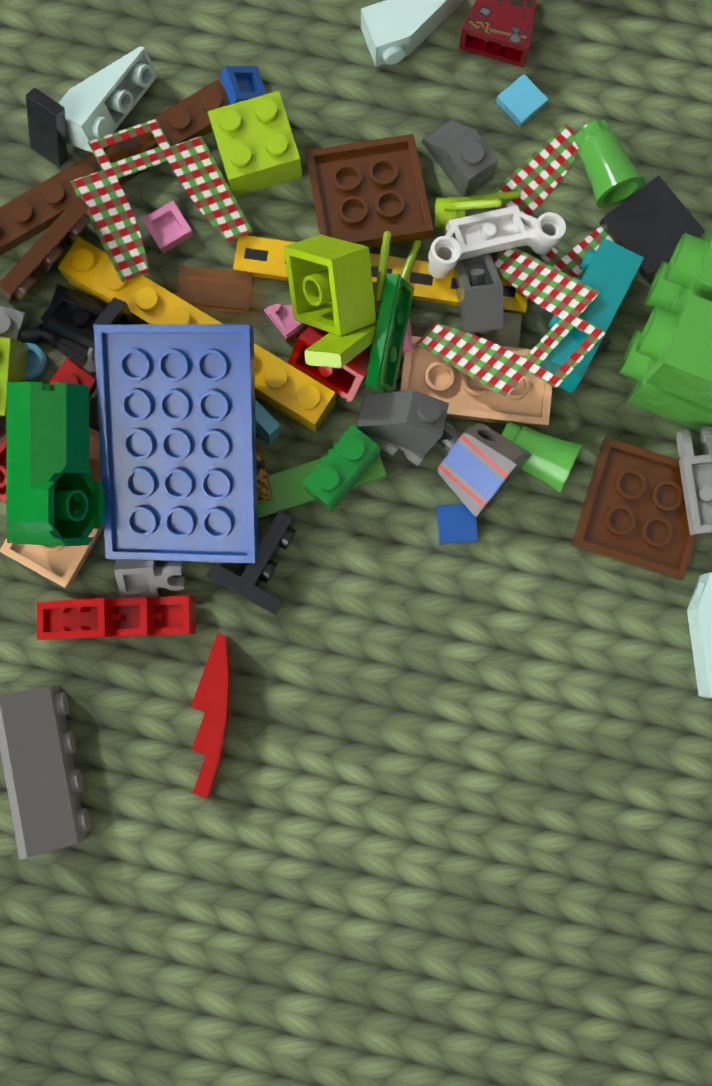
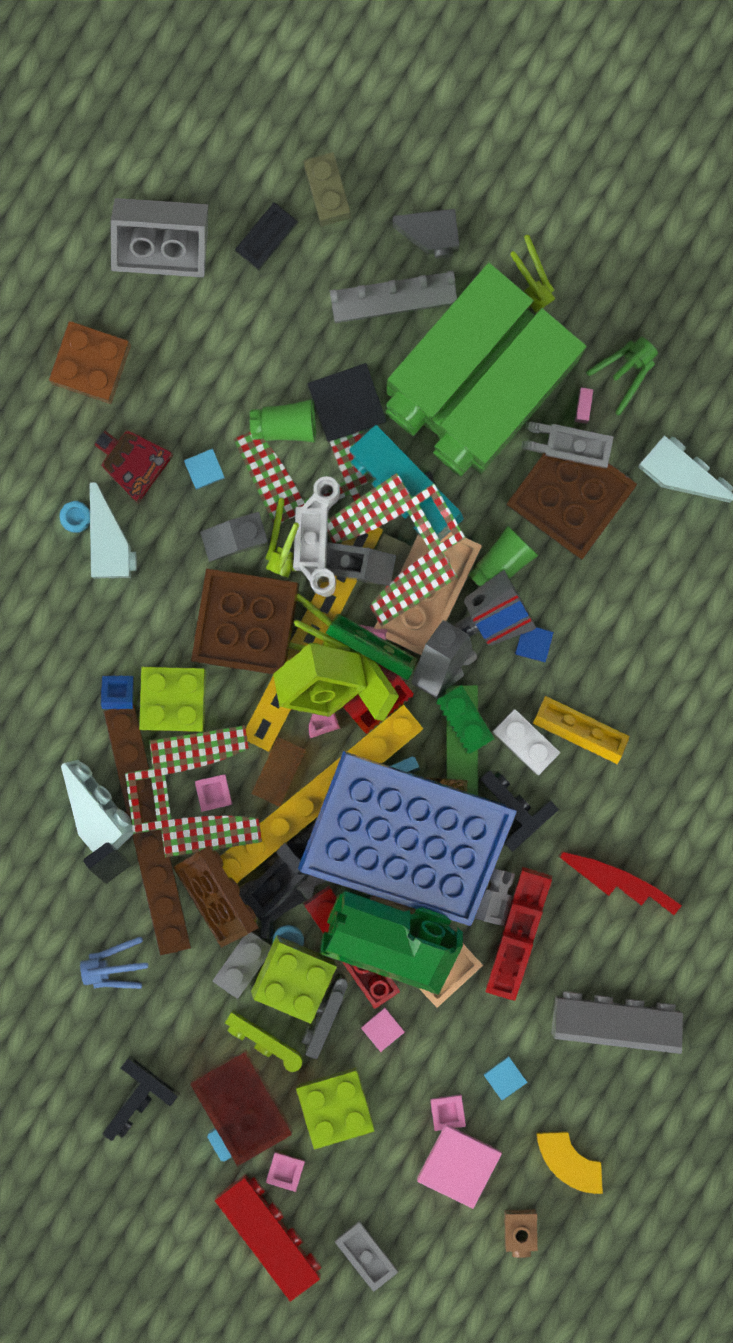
camera: 70 degrees left, 5 degrees up
(339, 549) = (526, 742): none -> white brick
(375, 610) = (581, 730): none -> yellow plate

